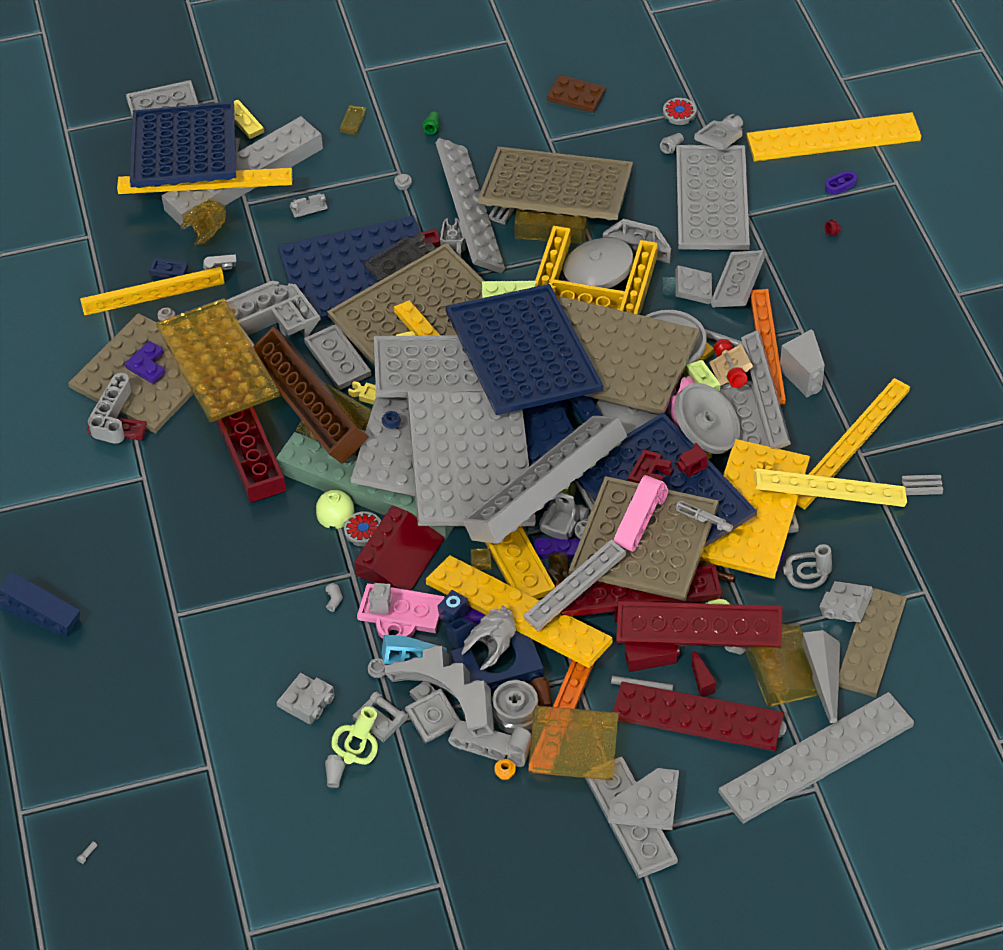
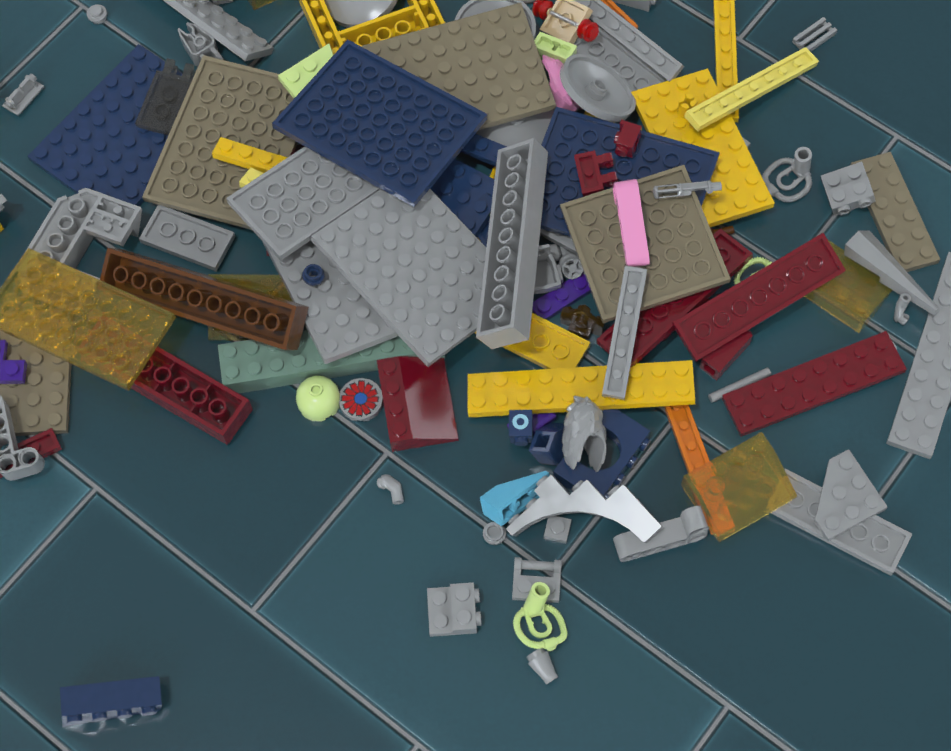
camera: 35 degrees left, 15 degrees up
(366, 393) = (250, 257): light yellow plate -> none
(380, 598) = (446, 463): light grey brick -> none
(407, 612) = (467, 460): bright pink plate -> none
(432, 236) = (178, 55): dark red plate -> none
(432, 715) = (585, 546): light grey tile -> none
(481, 558) = (498, 358): clear yellow plate -> none
(505, 774) = (692, 559): light orange plate -> none
(514, 705) = (666, 483): light grey wheel -> none
(542, 688) = (663, 454): reddish brown cone -> none
(704, 680) = (787, 342): dark red slope -> none
(812, 707) = (901, 305): none -> light grey arm

